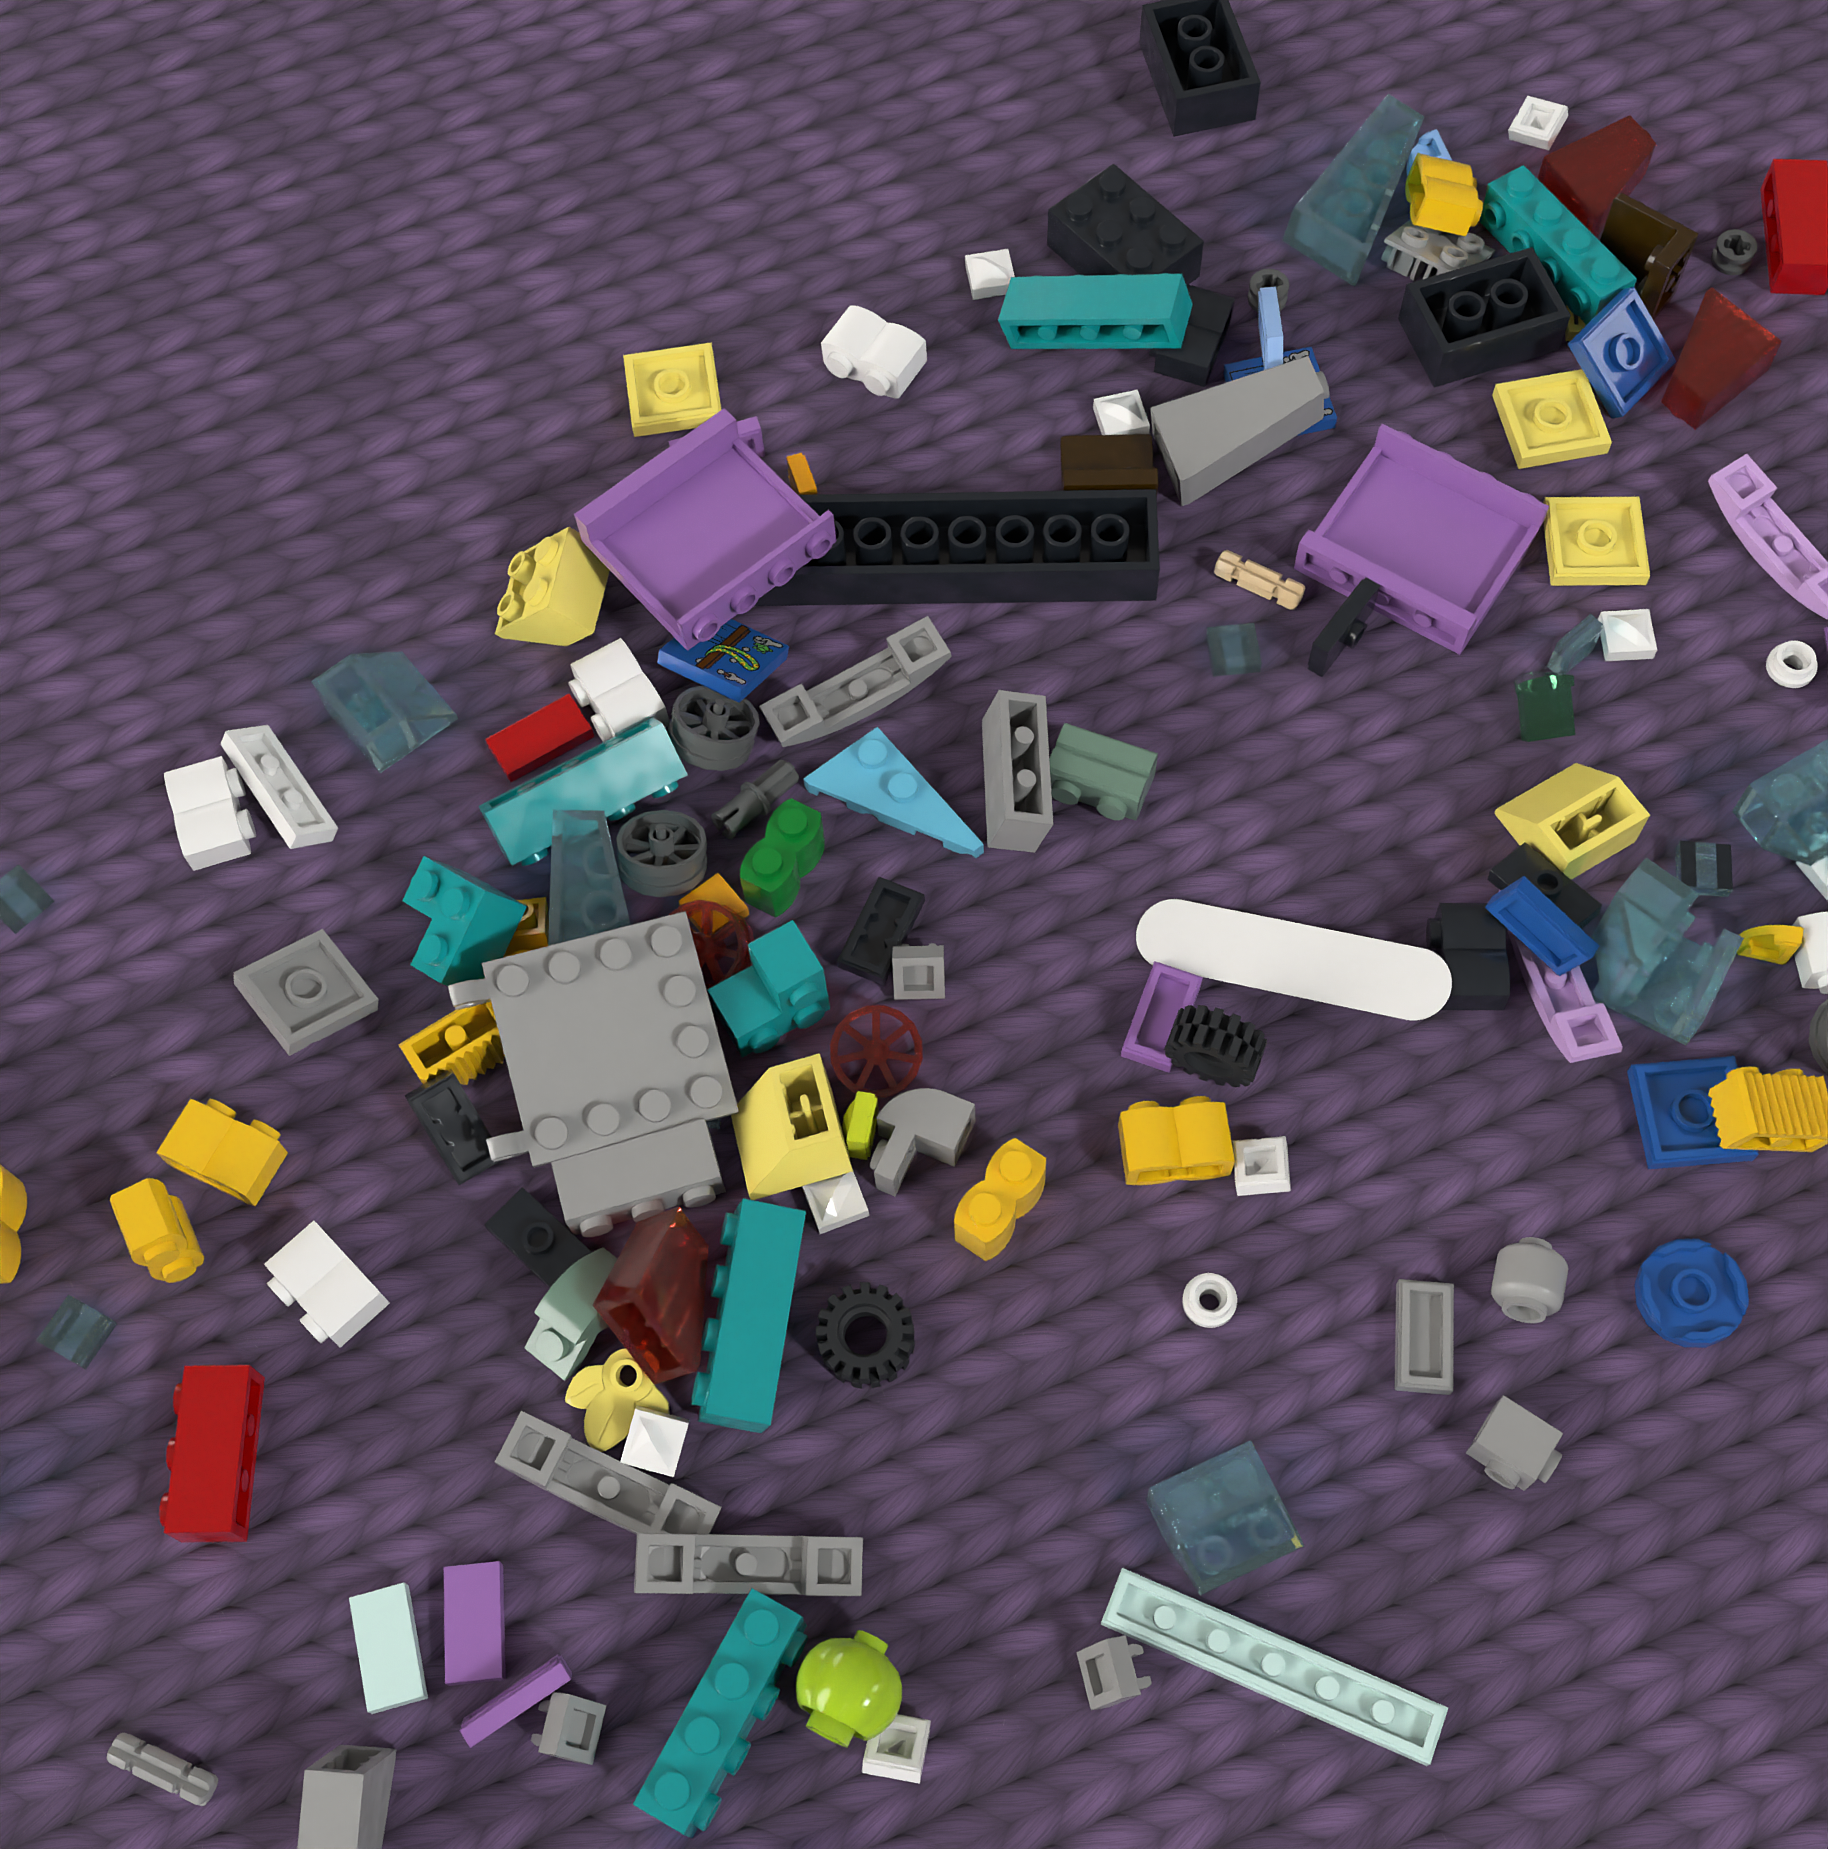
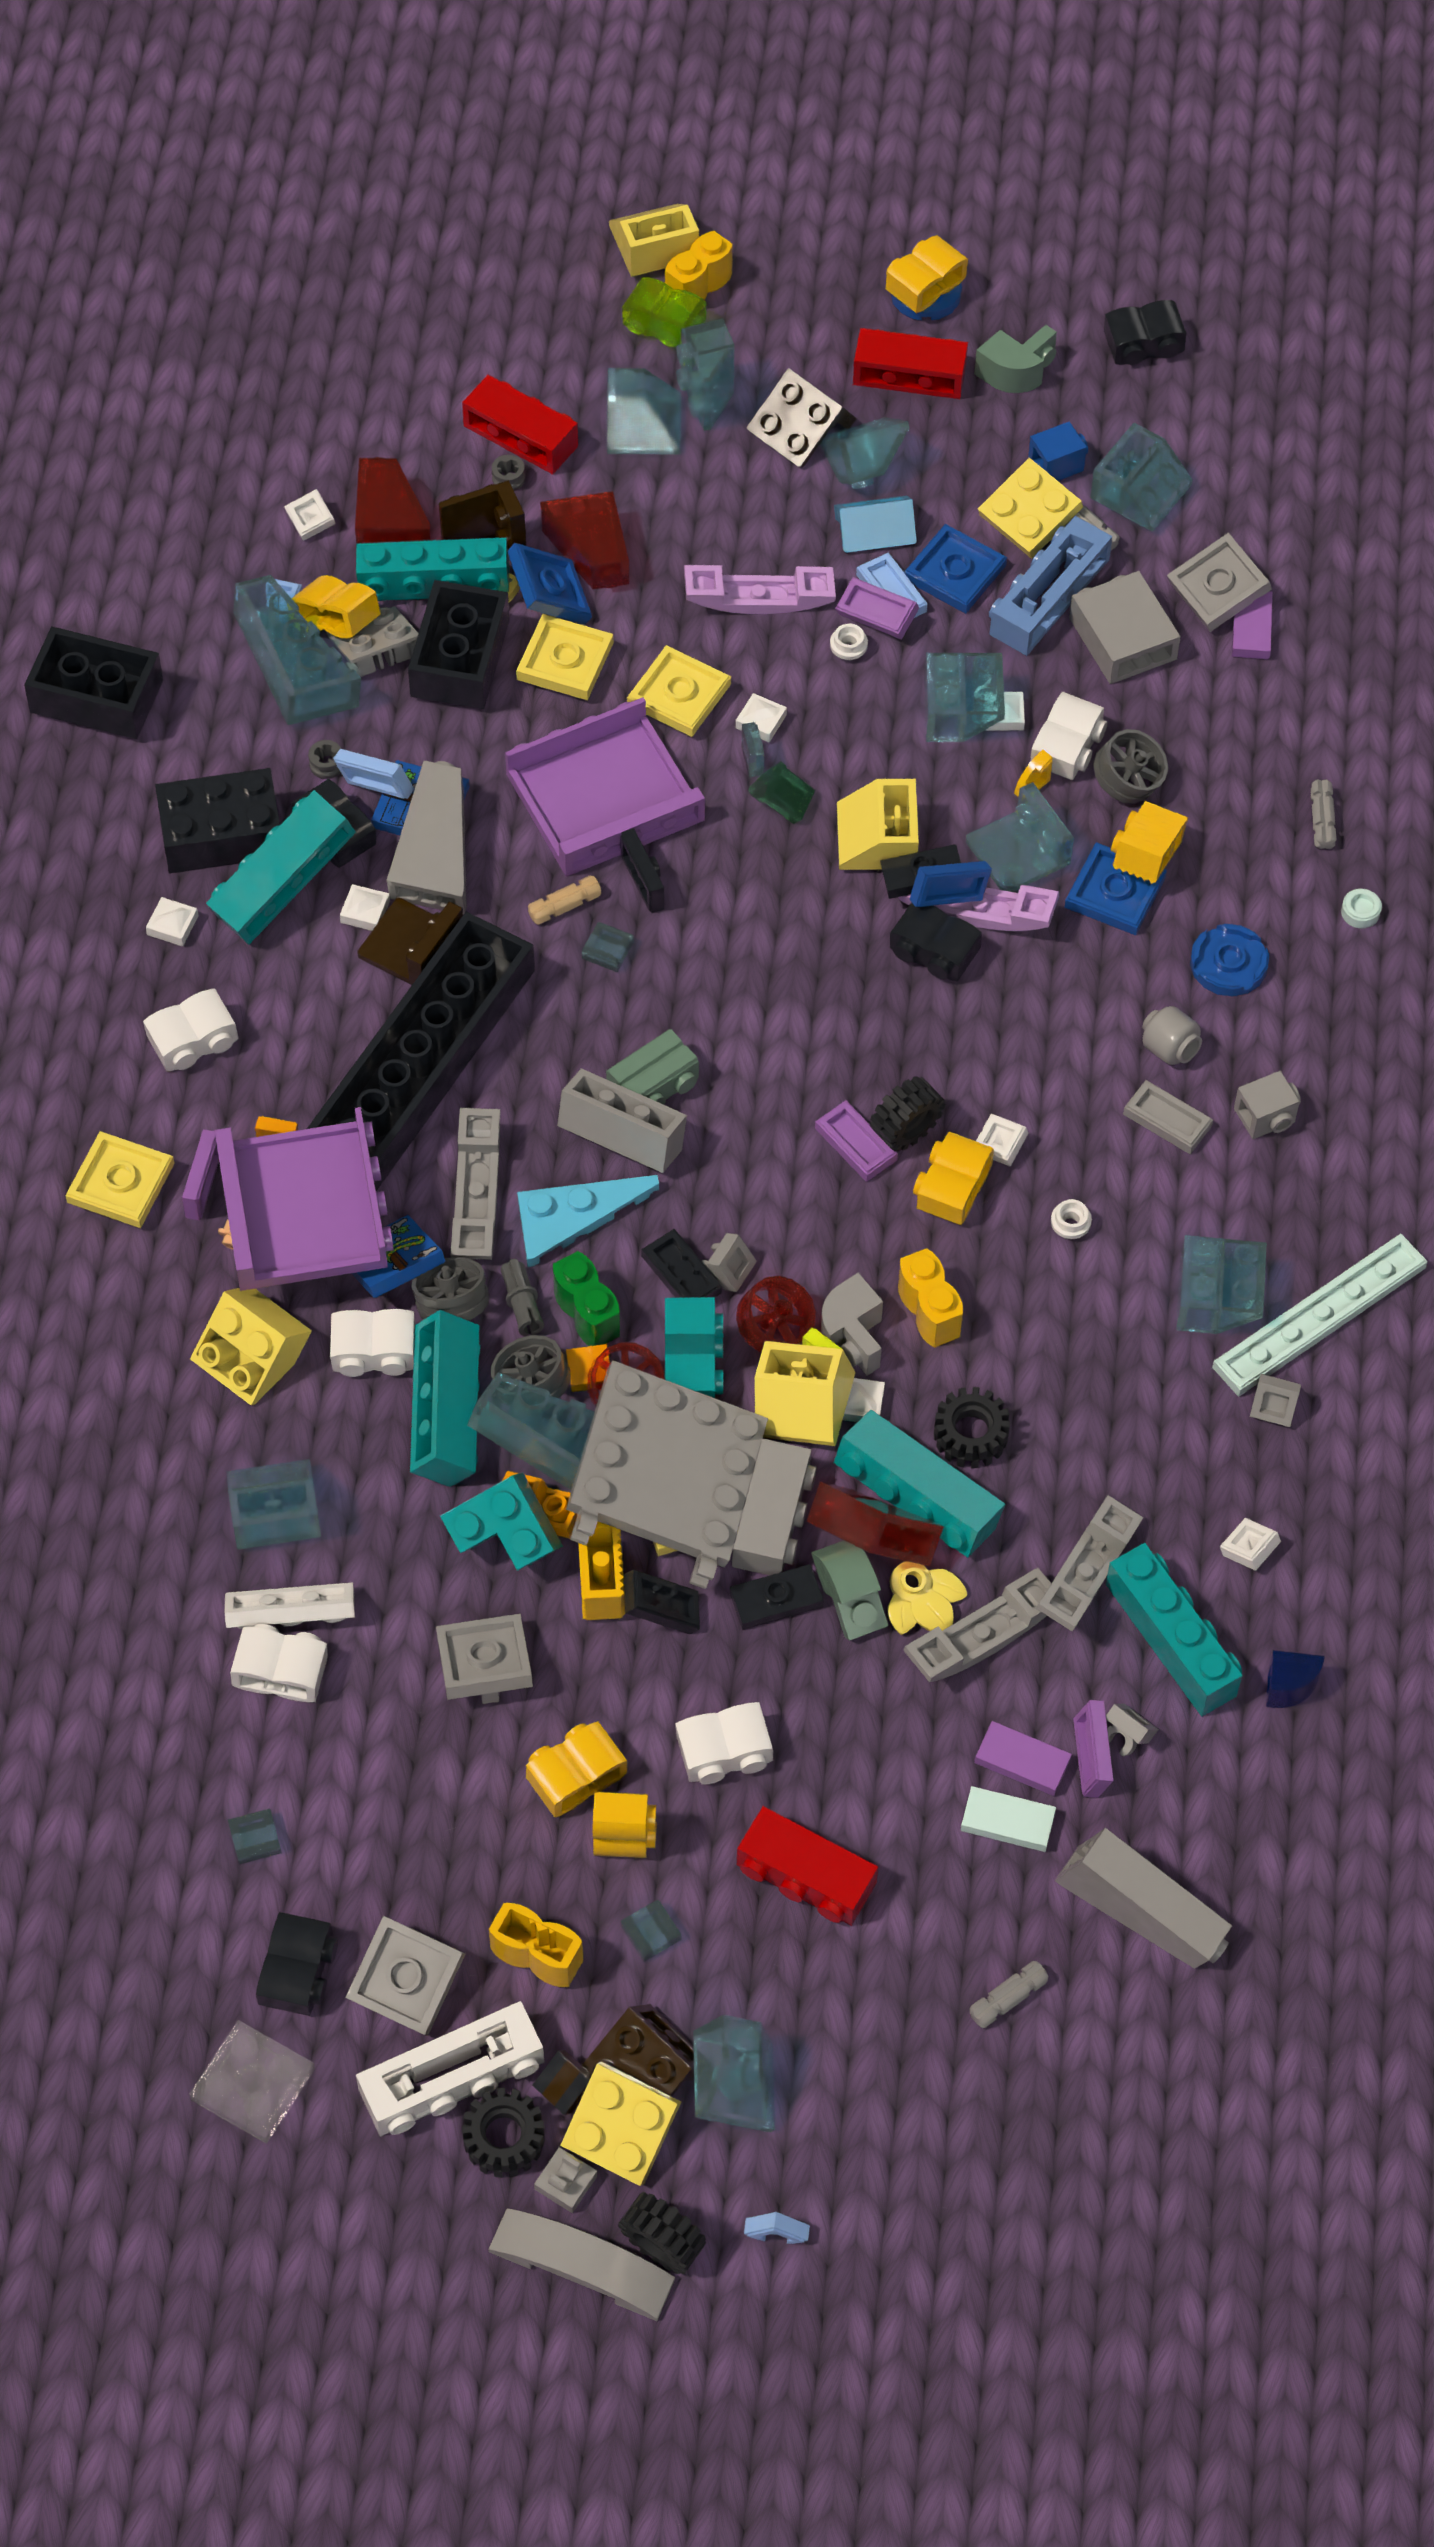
camera: 65 degrees left, 5 degrees down
(539, 737) = (367, 1415): red tile -> none
(654, 1441) = (967, 1587): white tile -> none
(849, 1688) = (1203, 1545): lime plant -> none
(1295, 959) = (868, 1040): white sticker -> none
(1641, 930) = (990, 832): clear light blue slope -> none
(1705, 867) = (958, 780): tile -> none

